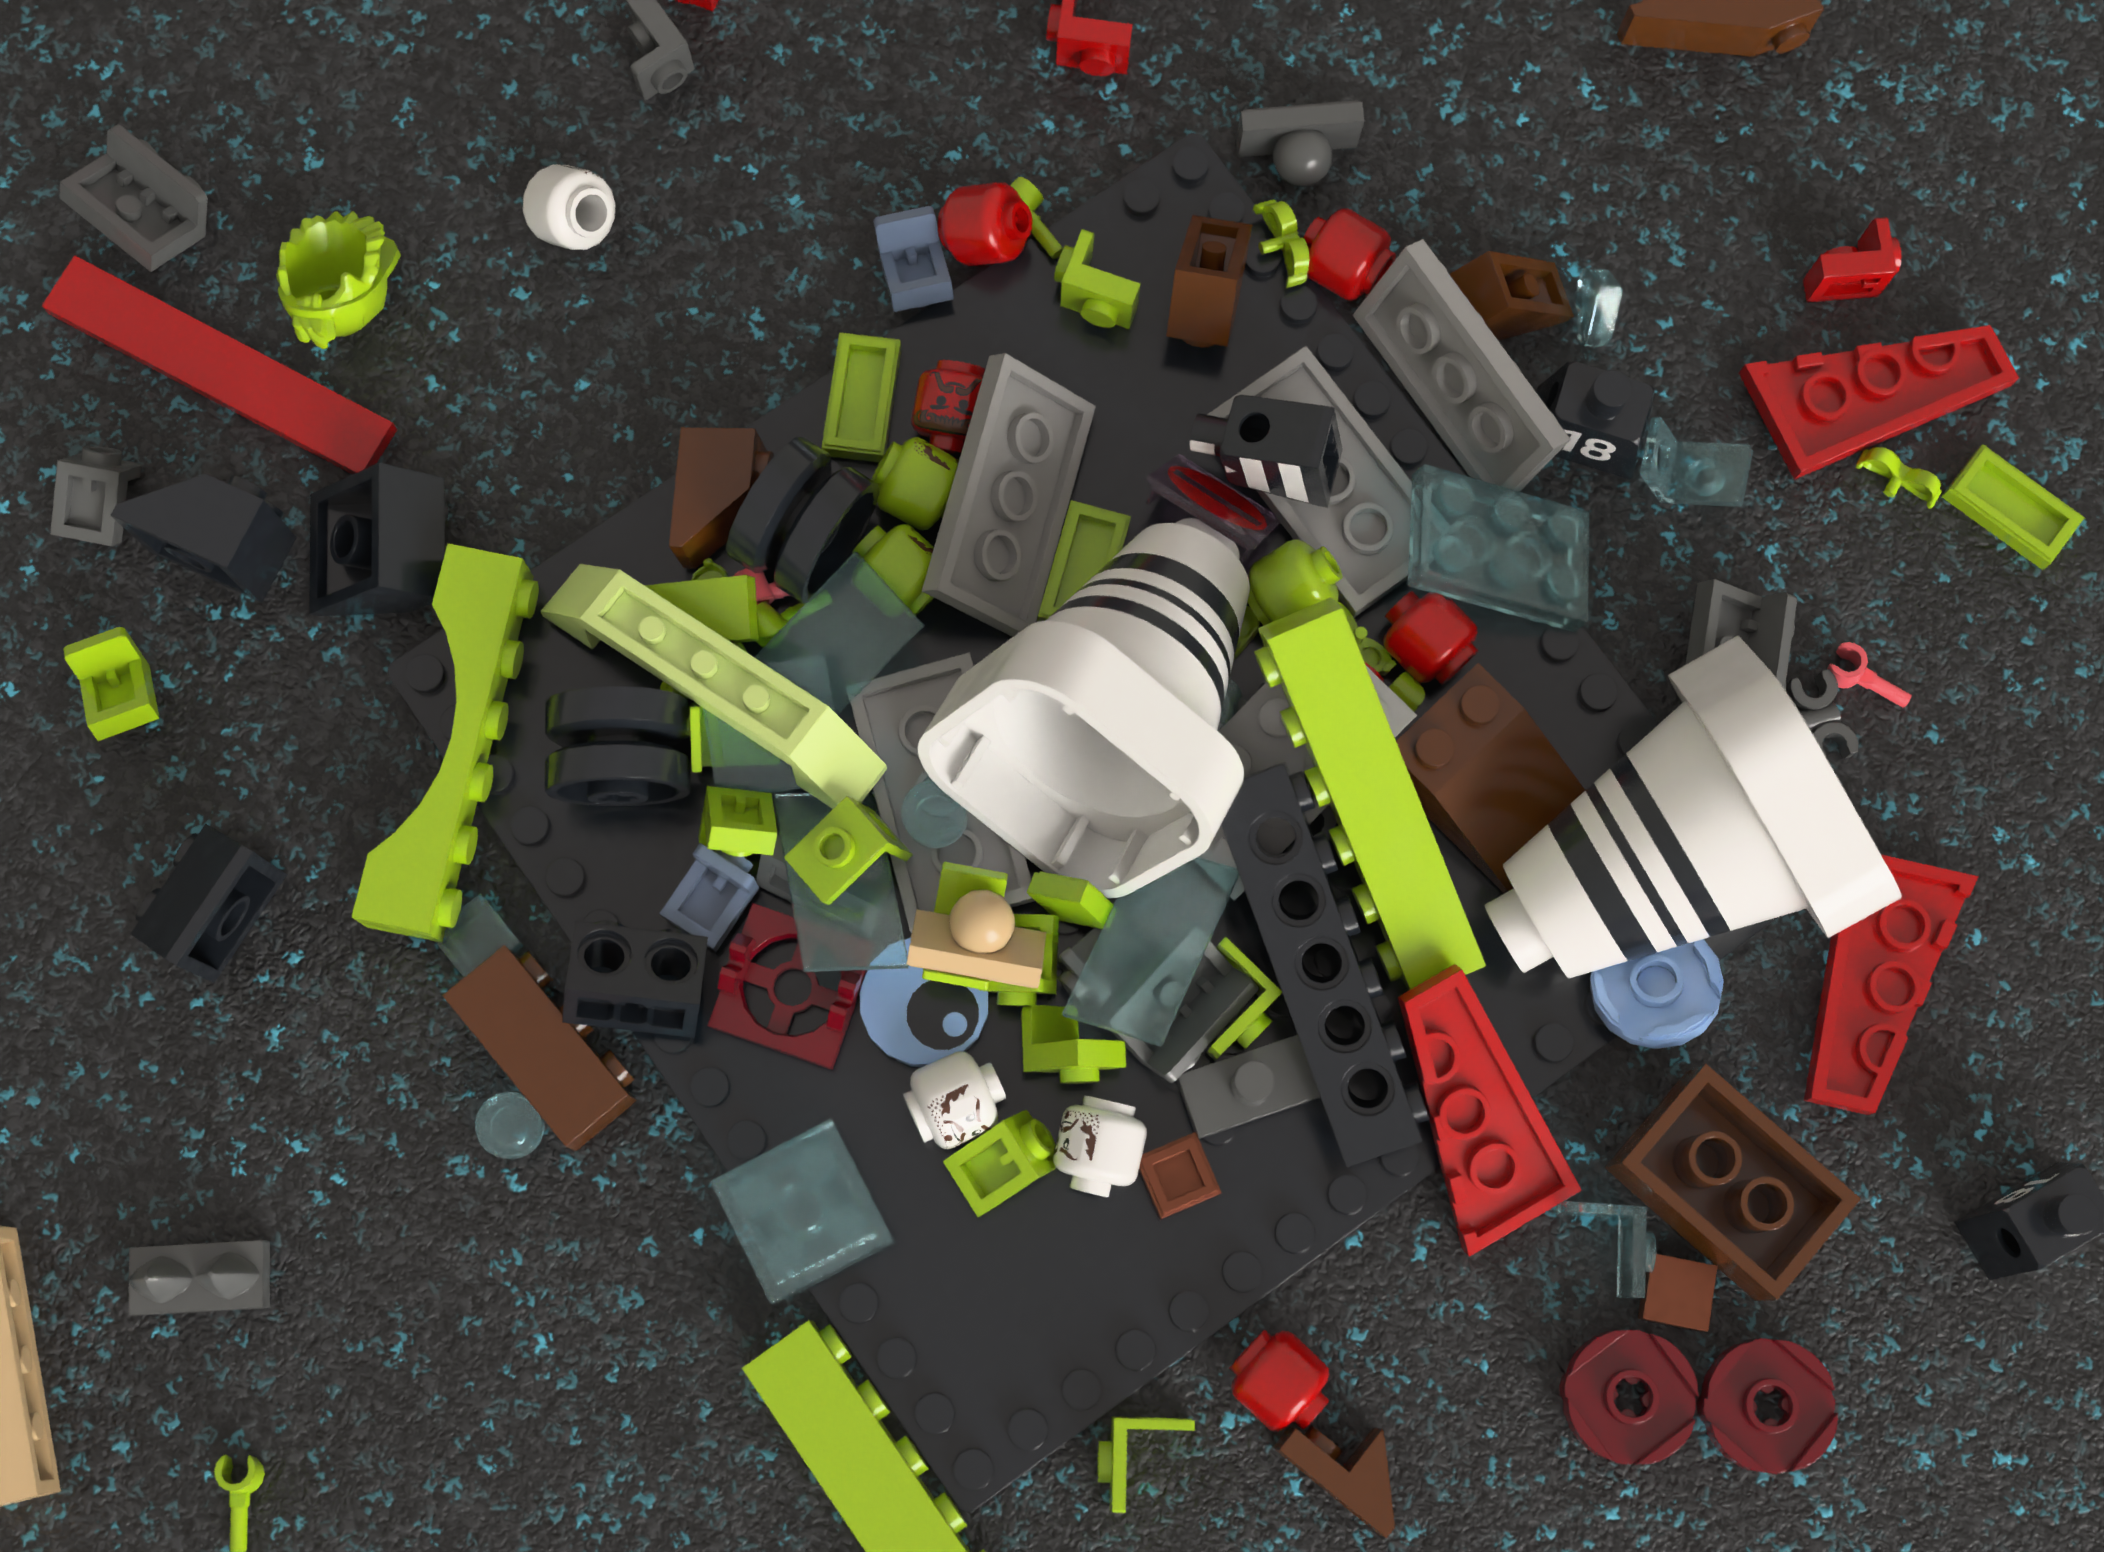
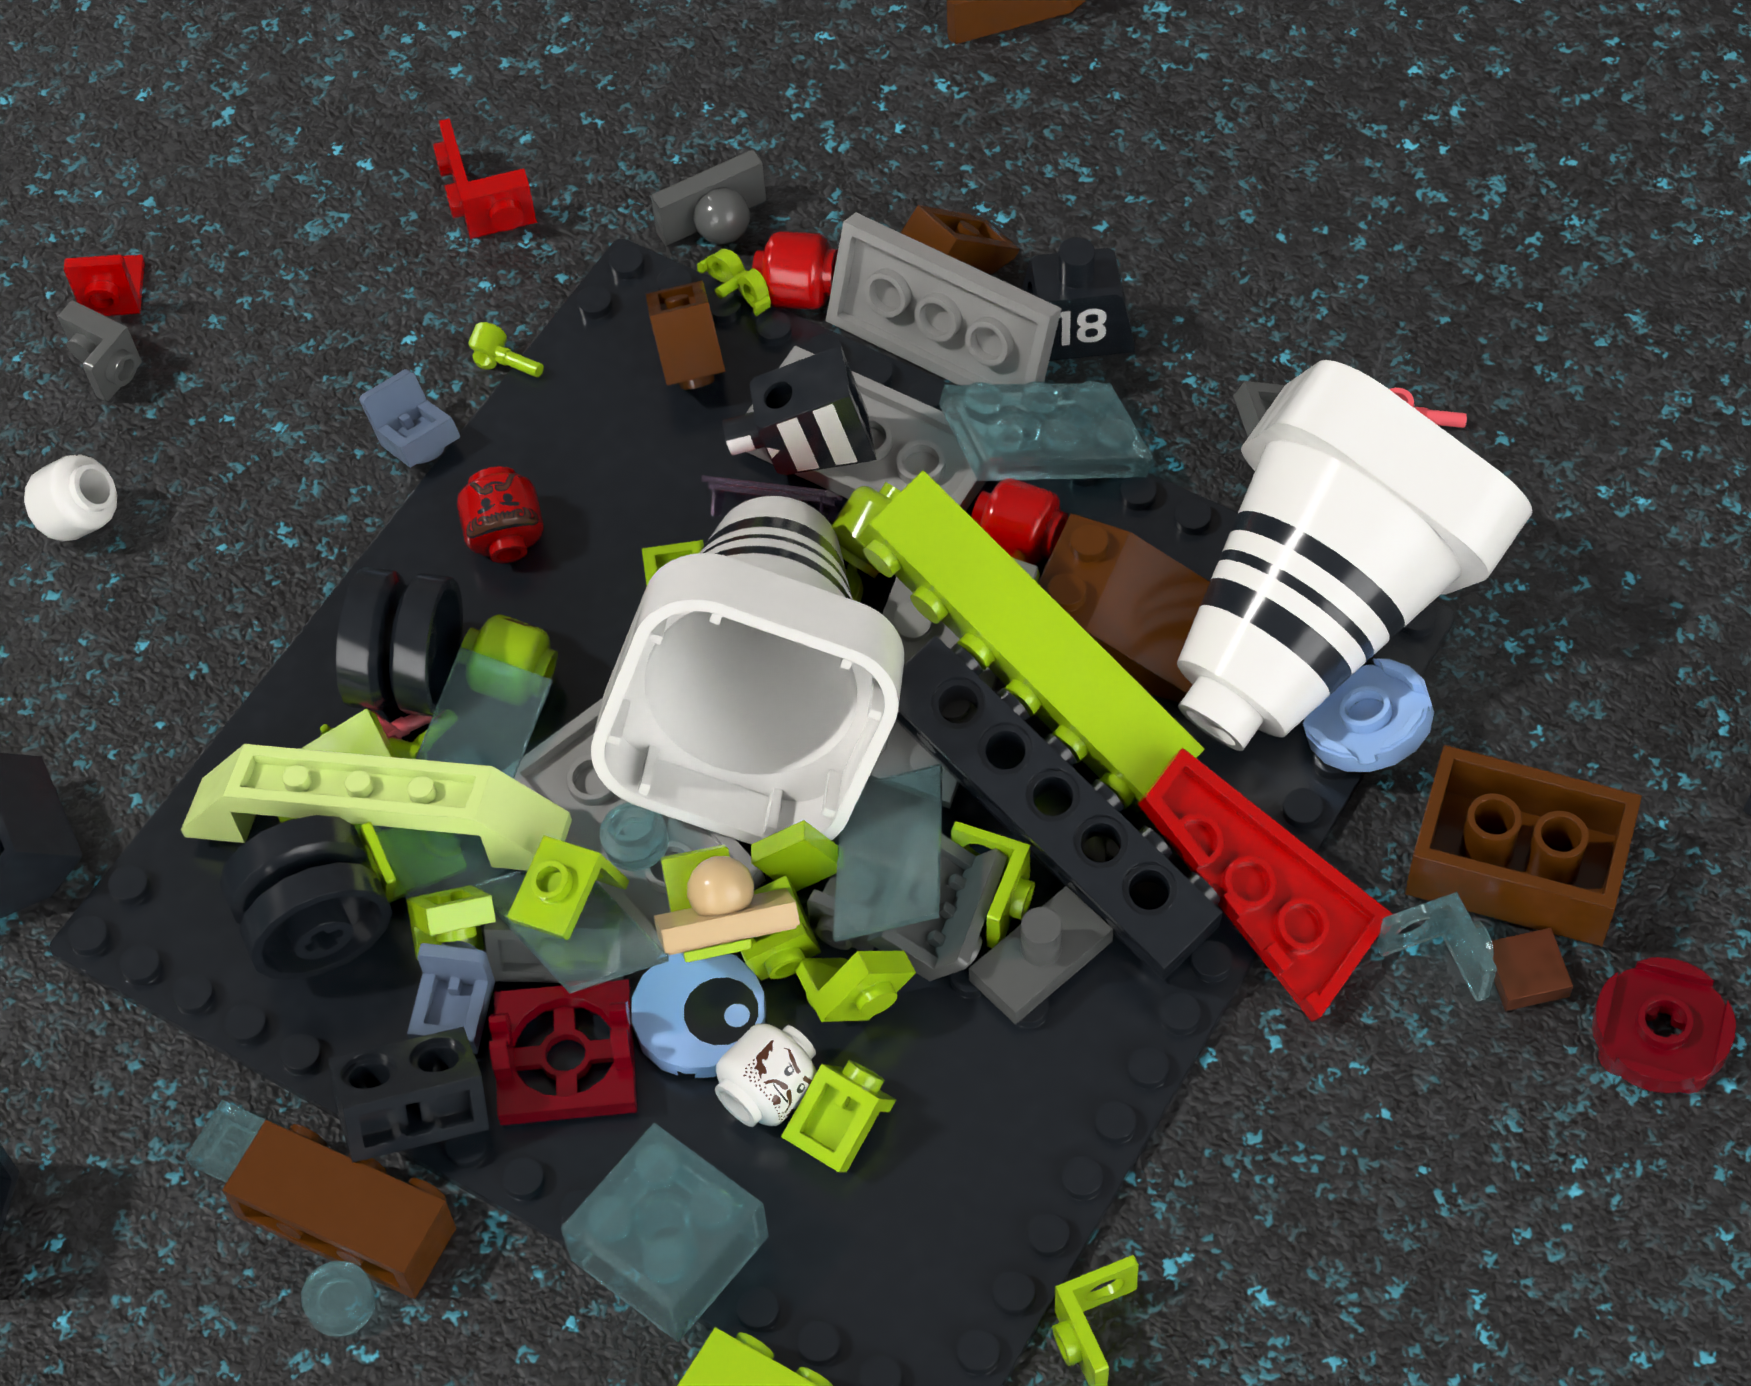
camera: 15 degrees left, 20 degrees down
(415, 871) = (148, 1091): lime arch -> none
(710, 485) = (301, 661): reddish brown slope -> none
(861, 397) = (408, 534): lime tile -> none
(915, 482) = (496, 582): lime head -> none
(984, 224) = (462, 367): red head -> none
(1009, 496) = (579, 552): light grey plate -> none
(1096, 294) = (586, 379): lime bracket -> none
(1099, 1145) = (924, 1055): white head -> none
(1178, 1176) = (1012, 1061): copper tile -> none
(1280, 1380) = (1198, 1193): red head -> none
(1358, 1485) = (1319, 1263): reddish brown slope -> none
(1597, 306) = (1034, 226): clear light blue tile -> none
(1667, 1403) = (1526, 1110): dark red plate -> none
(1694, 470) = (1186, 317): clear light blue bracket -> none
(1854, 271) = (1239, 122): red bracket -> none
(1854, 399) = (1304, 204): red wing -> none
(1876, 983) = (1560, 635): red wing -> none
(1888, 464) = (1346, 252): lime piece -> none
(2013, 507) = (1471, 243): lime tile -> none

